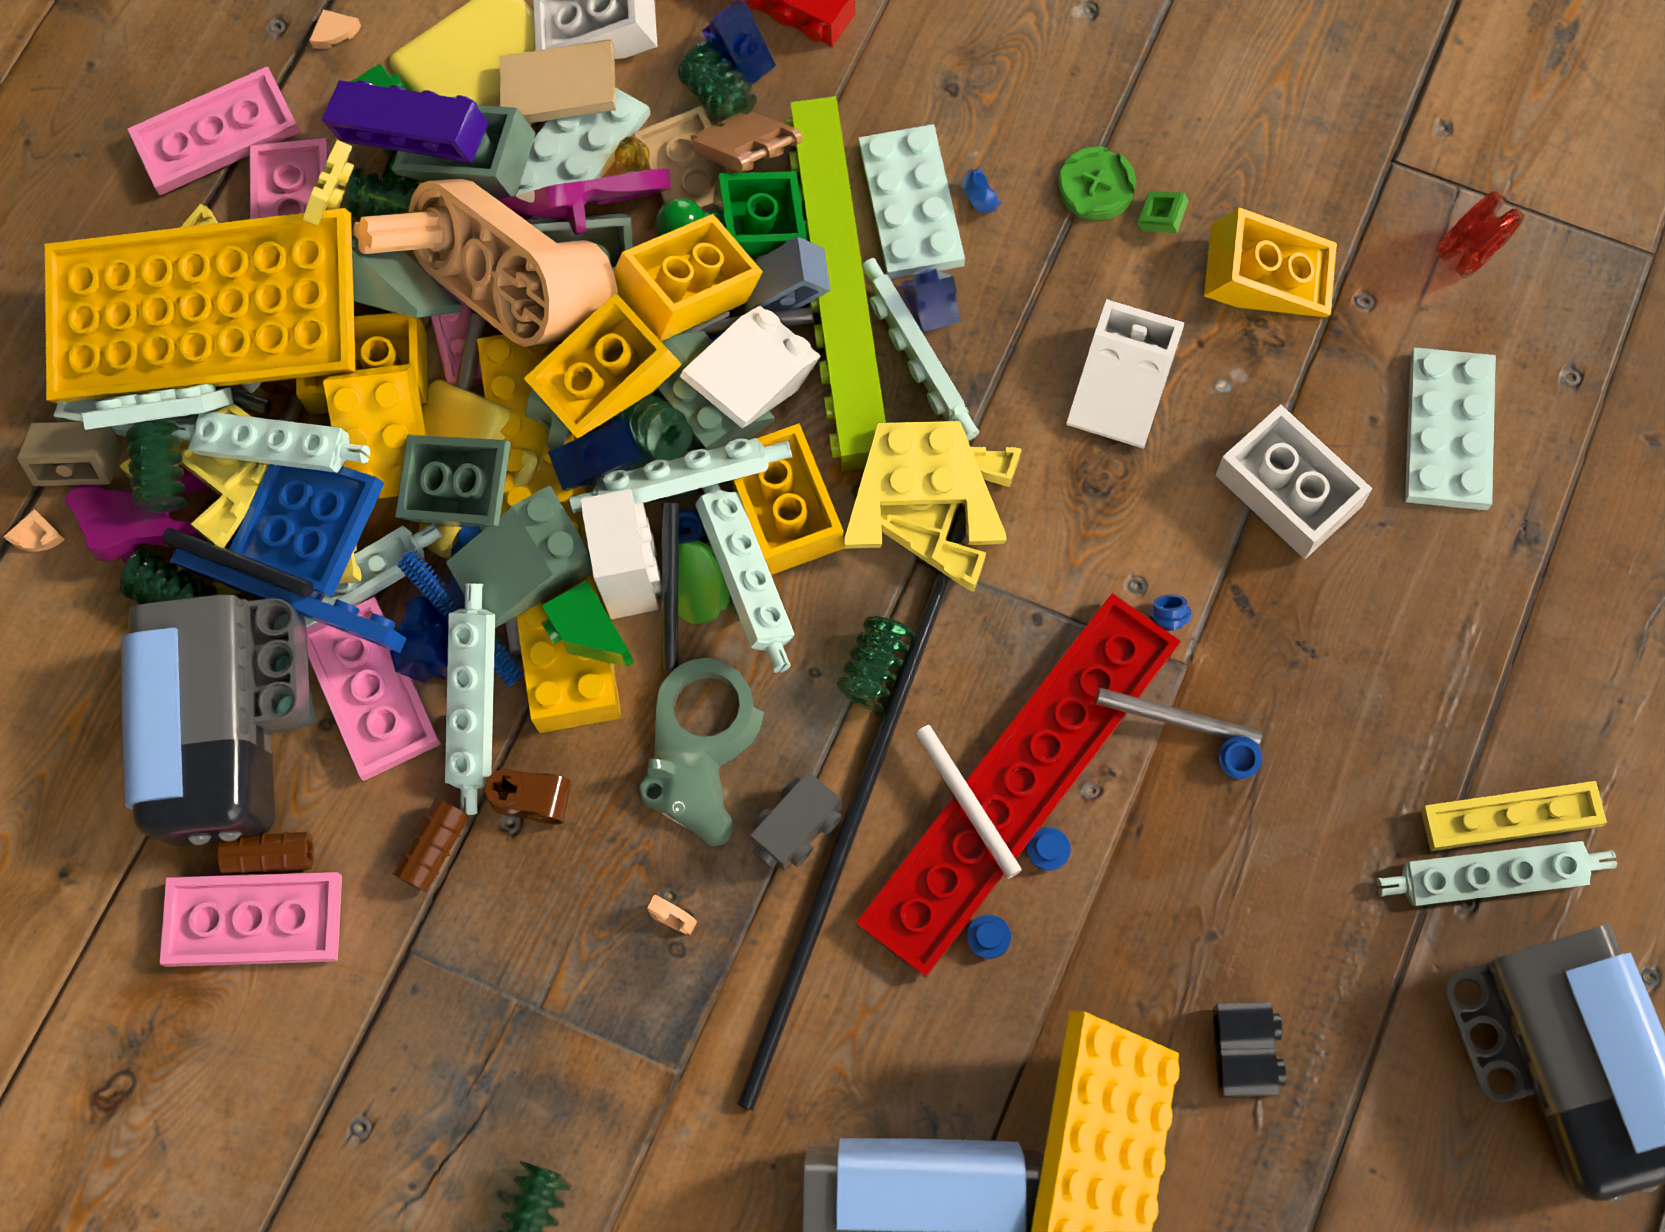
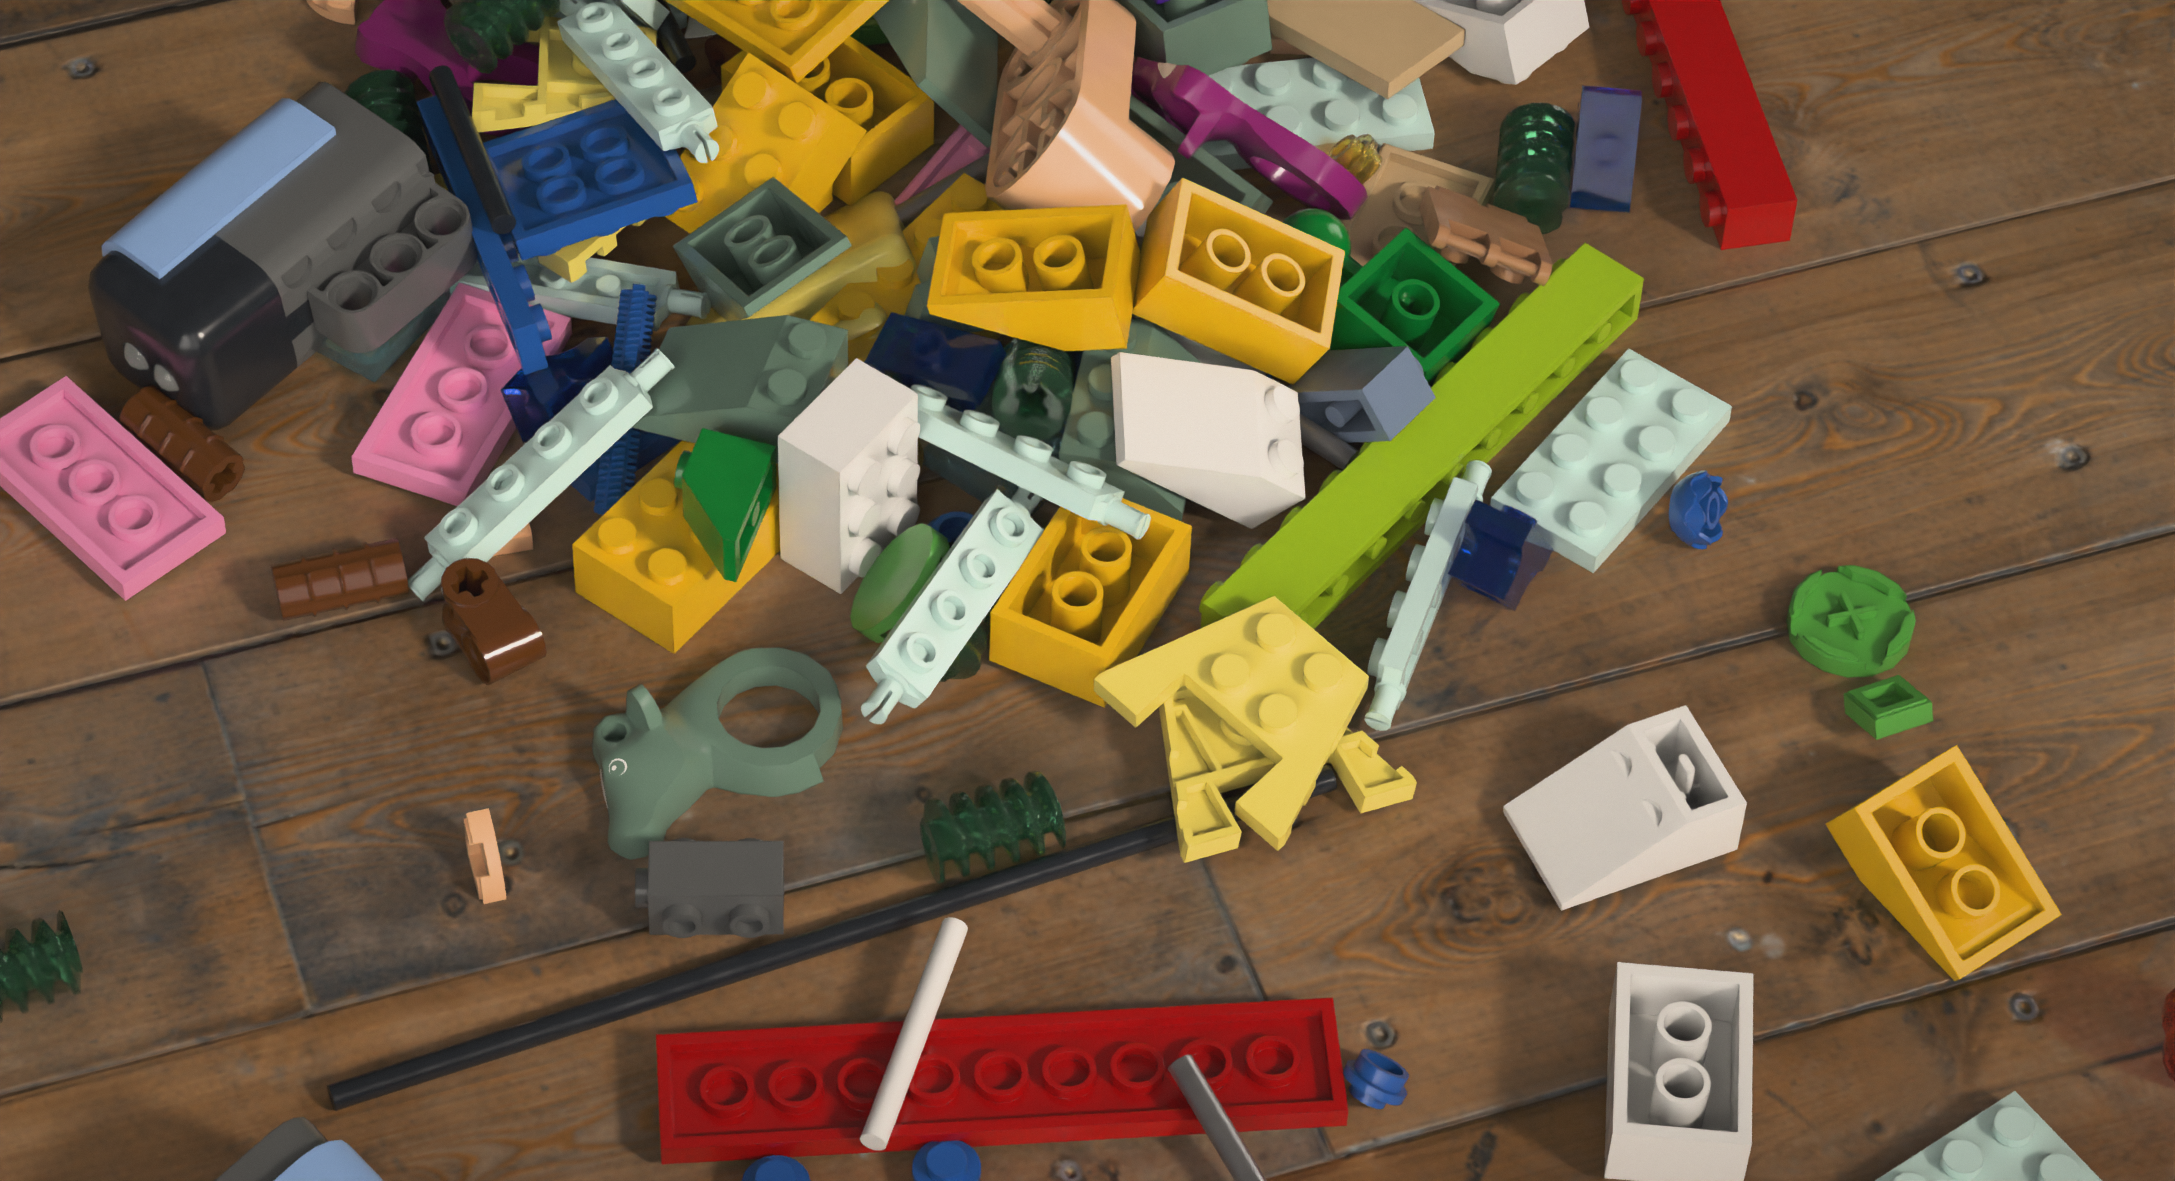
camera: 40 degrees right, 20 degrees down
(670, 577) = (869, 558): black bar -> none

